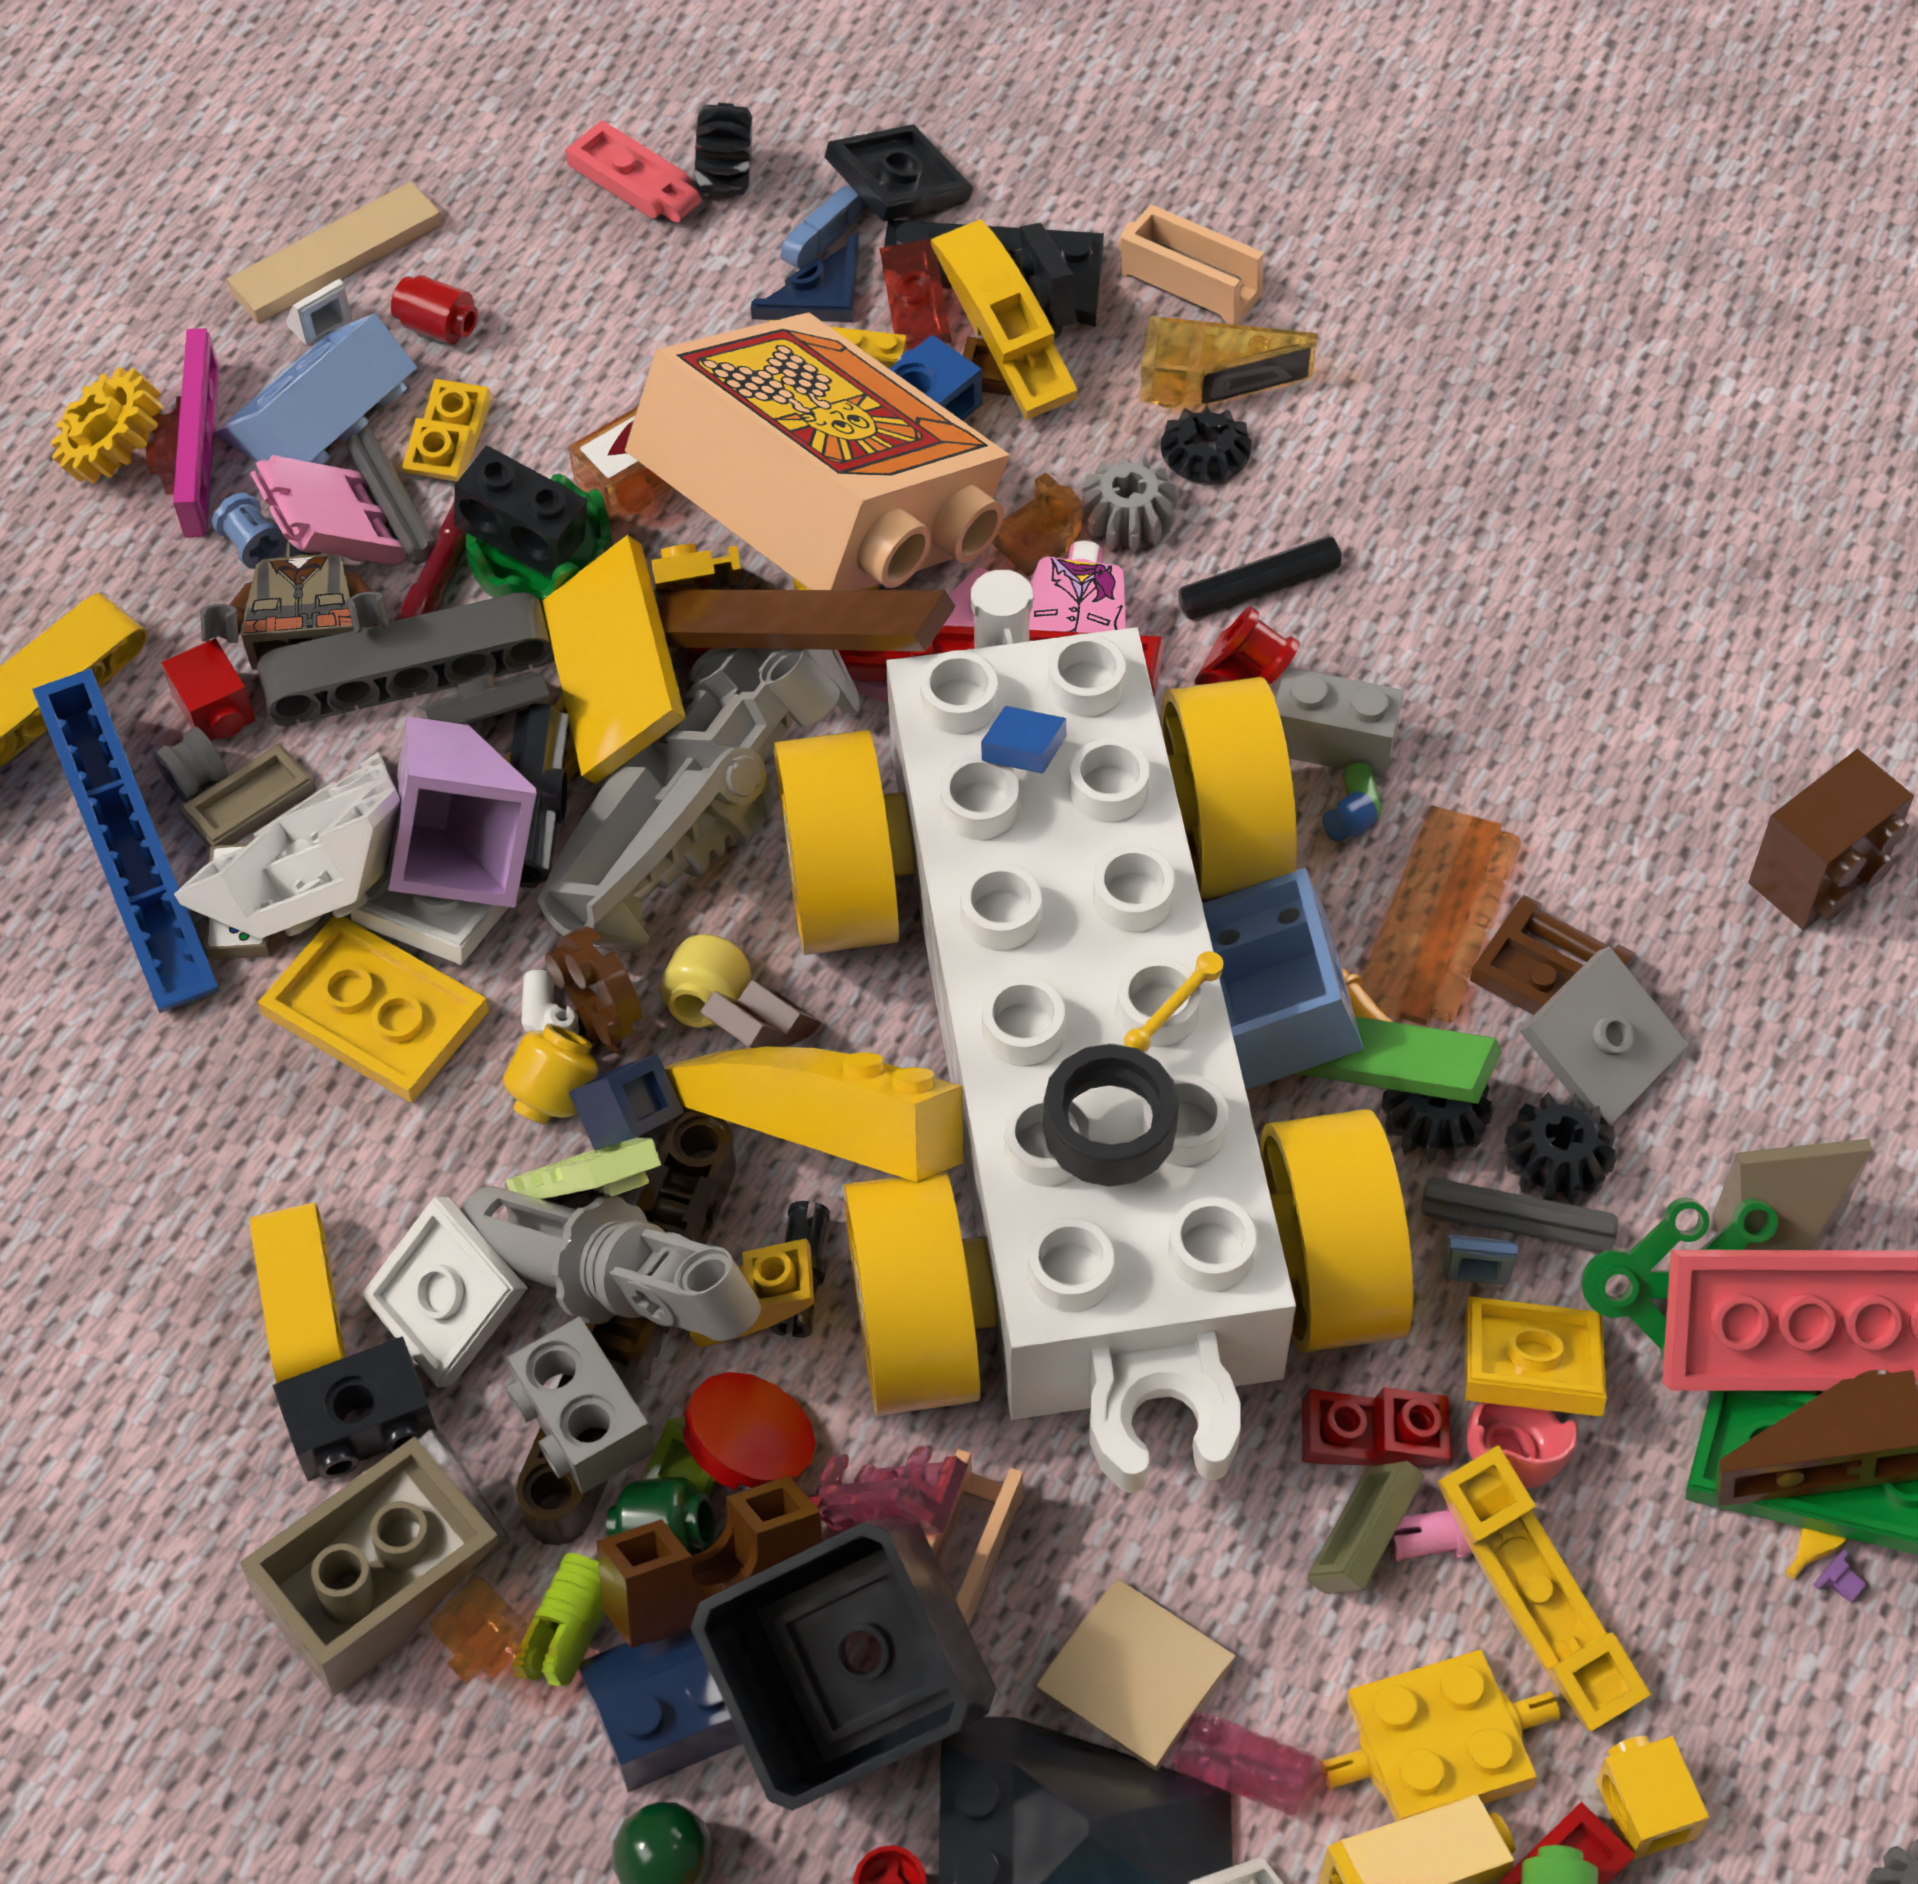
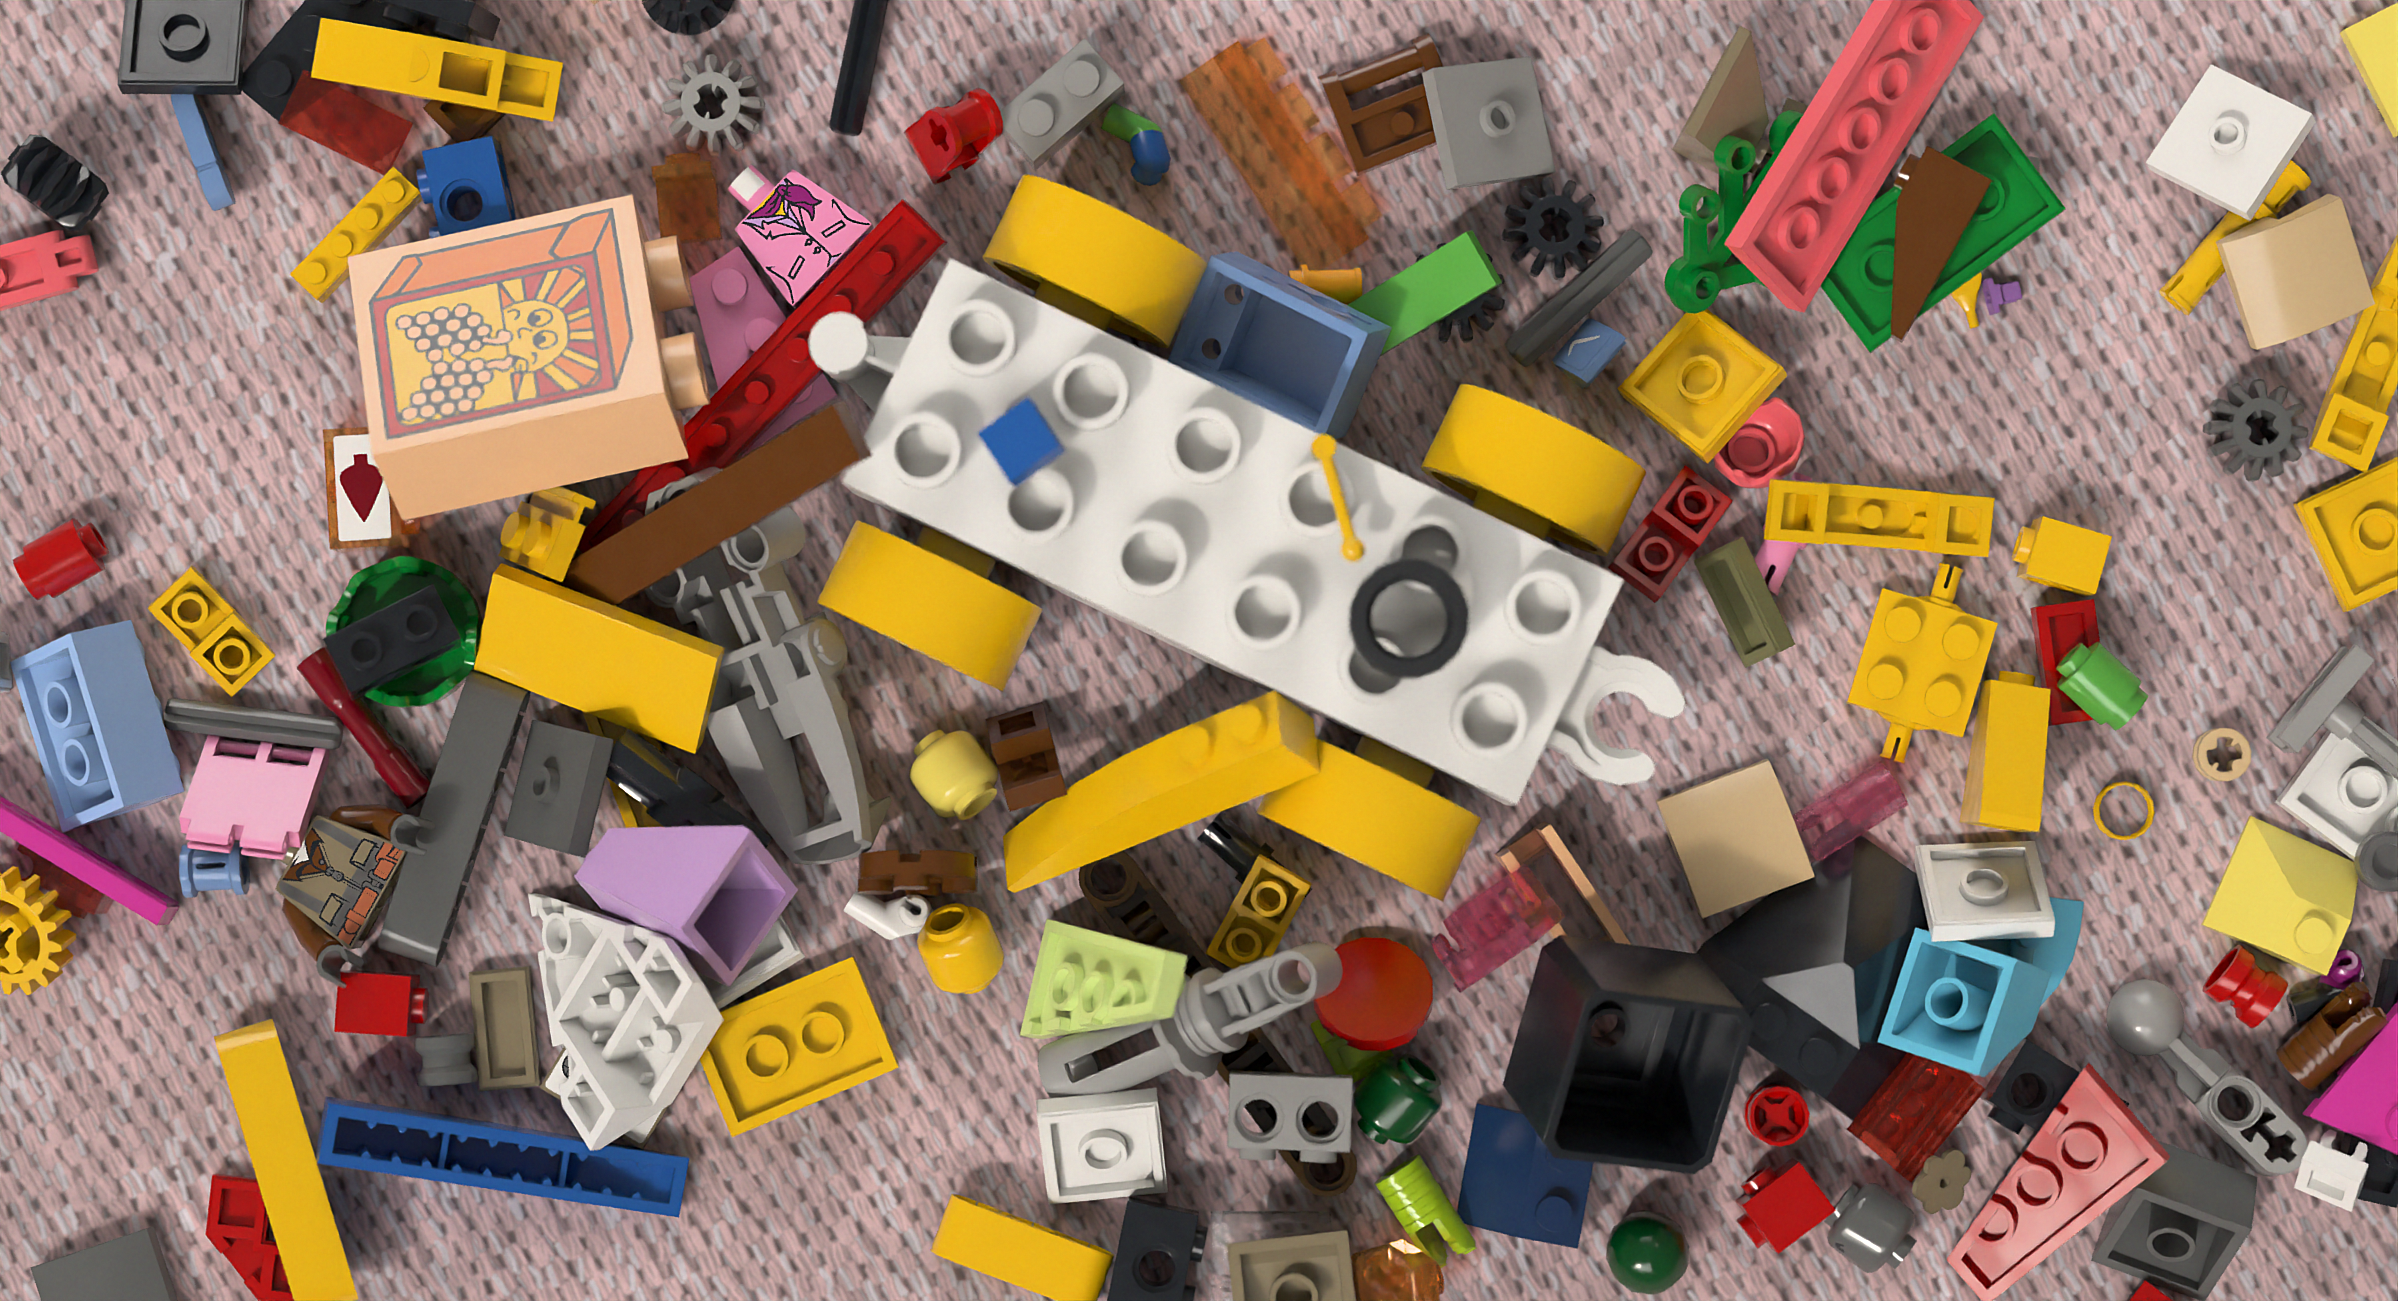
camera: 60 degrees left, 30 degrees up
(626, 1102) = (1037, 912): dark blue brick -> none
(656, 1585) = (1465, 1134): reddish brown arch -> none
(819, 288) = (269, 197): dark blue tile -> none

